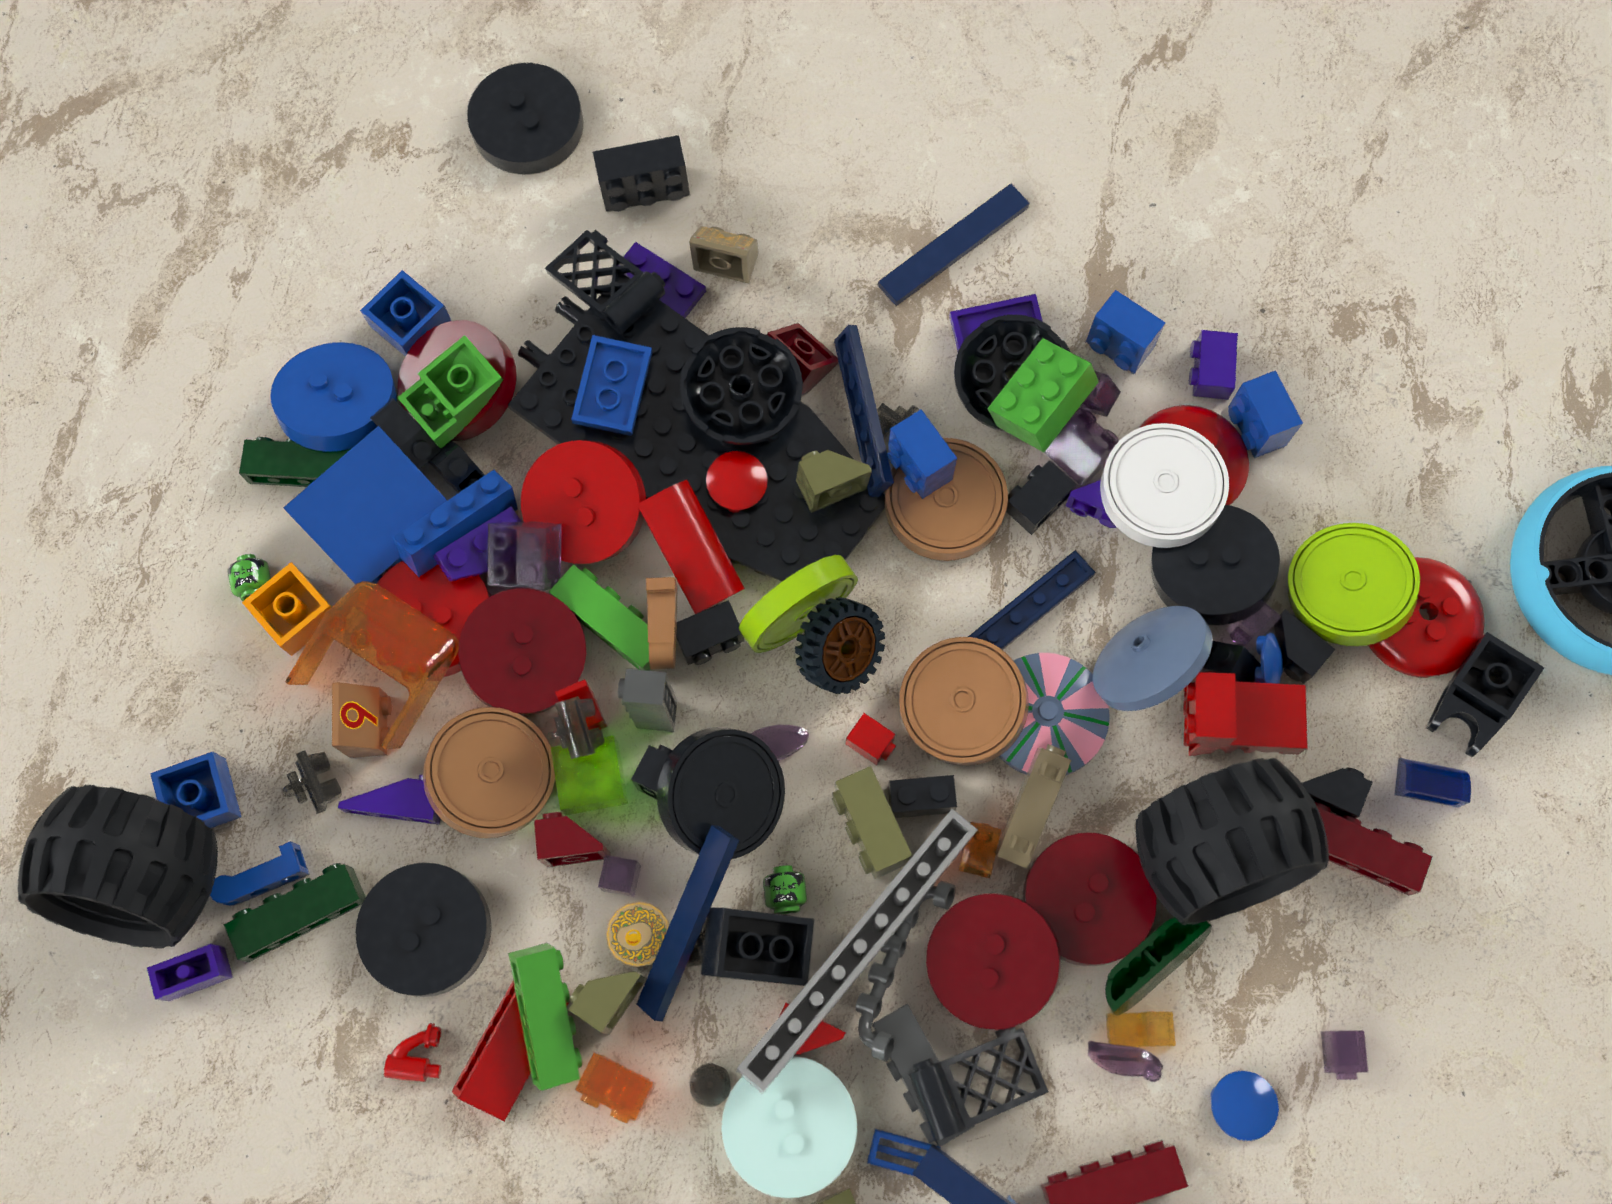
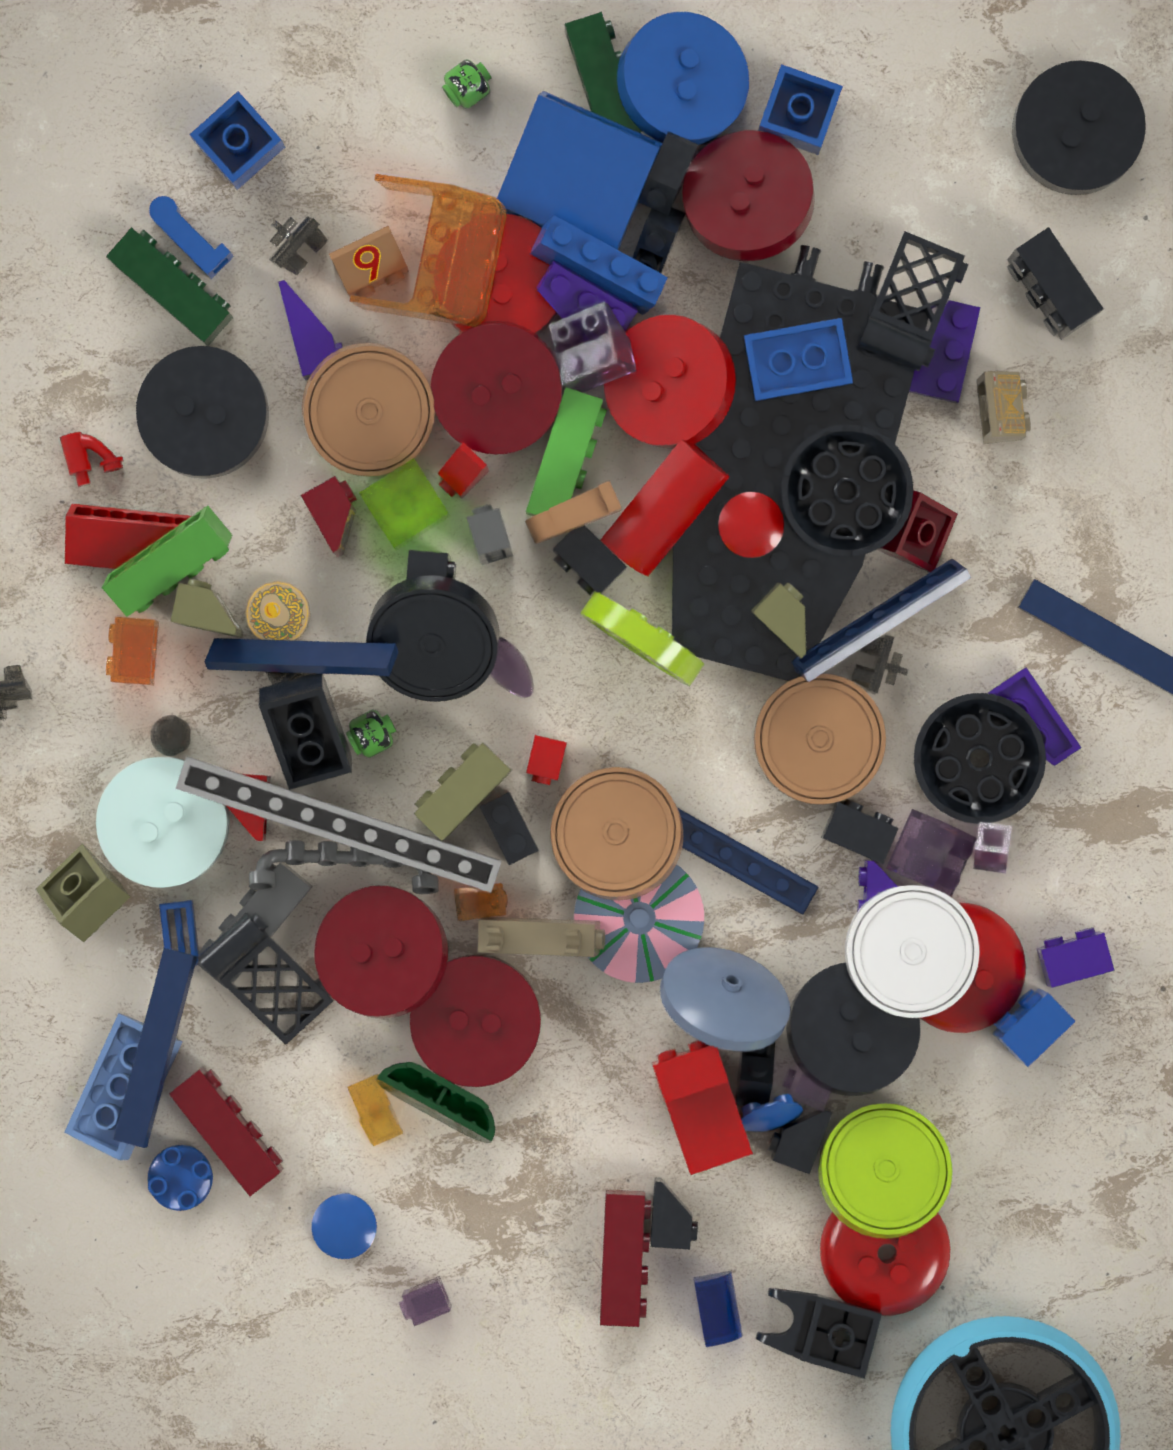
camera: 65 degrees right, 15 degrees up
(118, 866) = (138, 116): black tyre -> none
(189, 972) = (77, 216): dark purple brick -> none
(288, 608) = (450, 142): light orange brick -> none
(451, 391) = (725, 202): bright green slope -> none
(573, 728) = (434, 474): clear smoke hips -> none
(619, 875) = (322, 574): clear purple brick -> none
(840, 645) = (621, 694): wheel -> none
(921, 454) = (843, 699): blue brick -> none
(1043, 395) = (957, 797): bright green brick -> none
(1124, 332) = (1069, 854): blue brick -> none
(1125, 1060) = (340, 1105): clear purple arm -> none
(1231, 840) = (567, 1130): black tyre -> none

